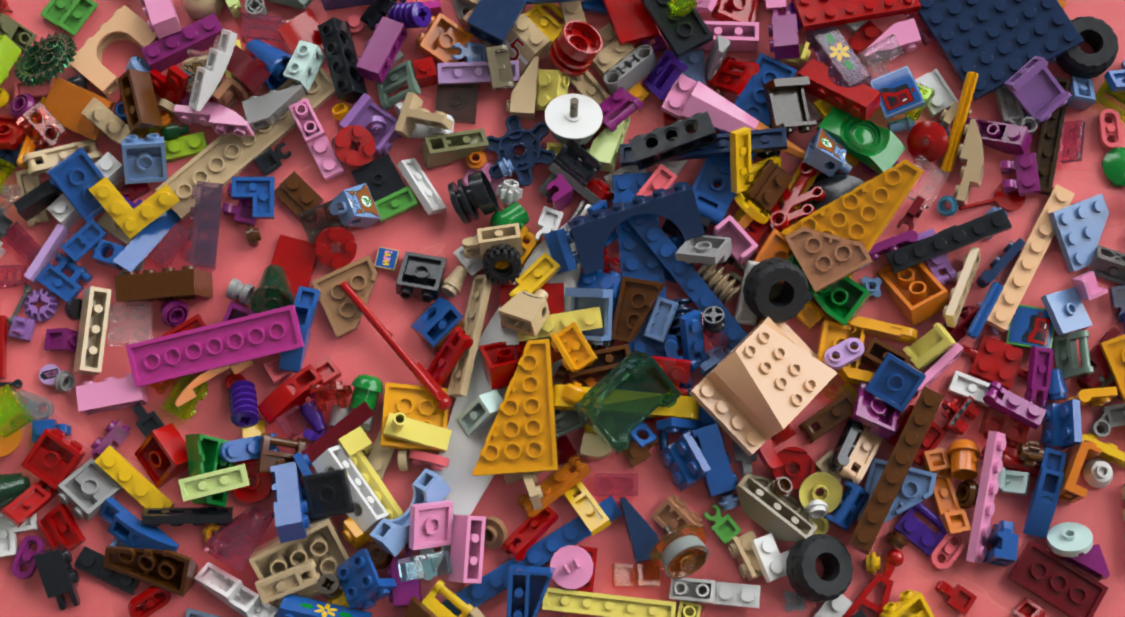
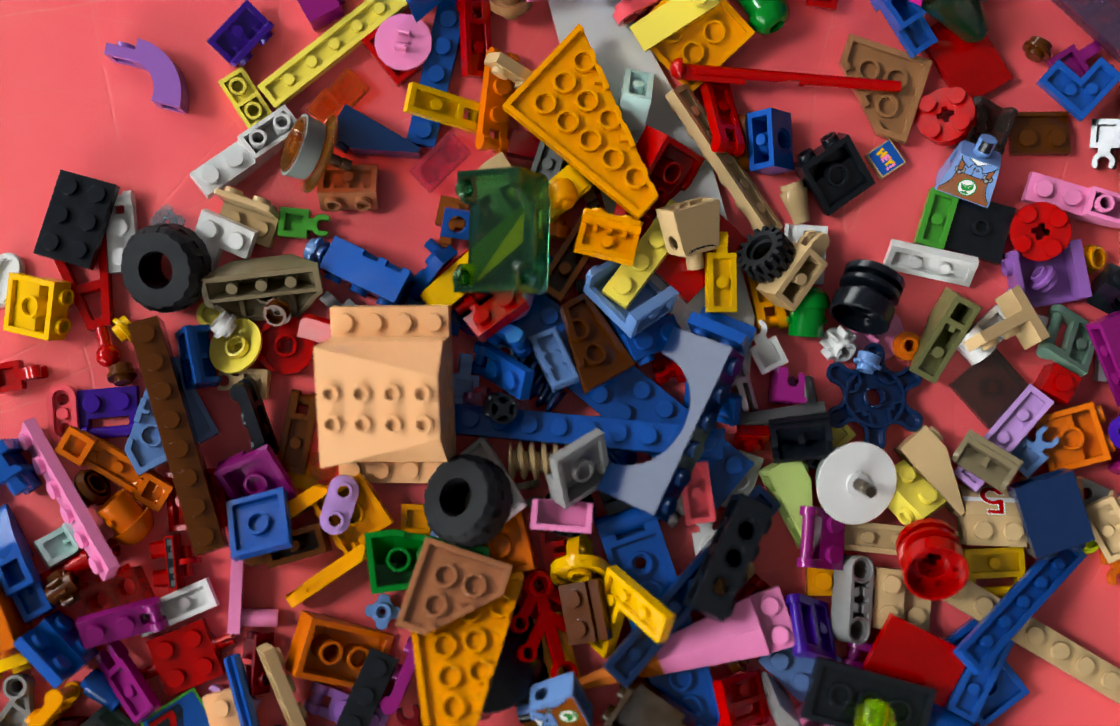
camera: 135 degrees right, 10 degrees up
(685, 462) = (392, 241): blue plate -> none
(861, 456) = (227, 420): light nougat plate -> none
(930, 346) = (263, 602): light yellow panel -> none

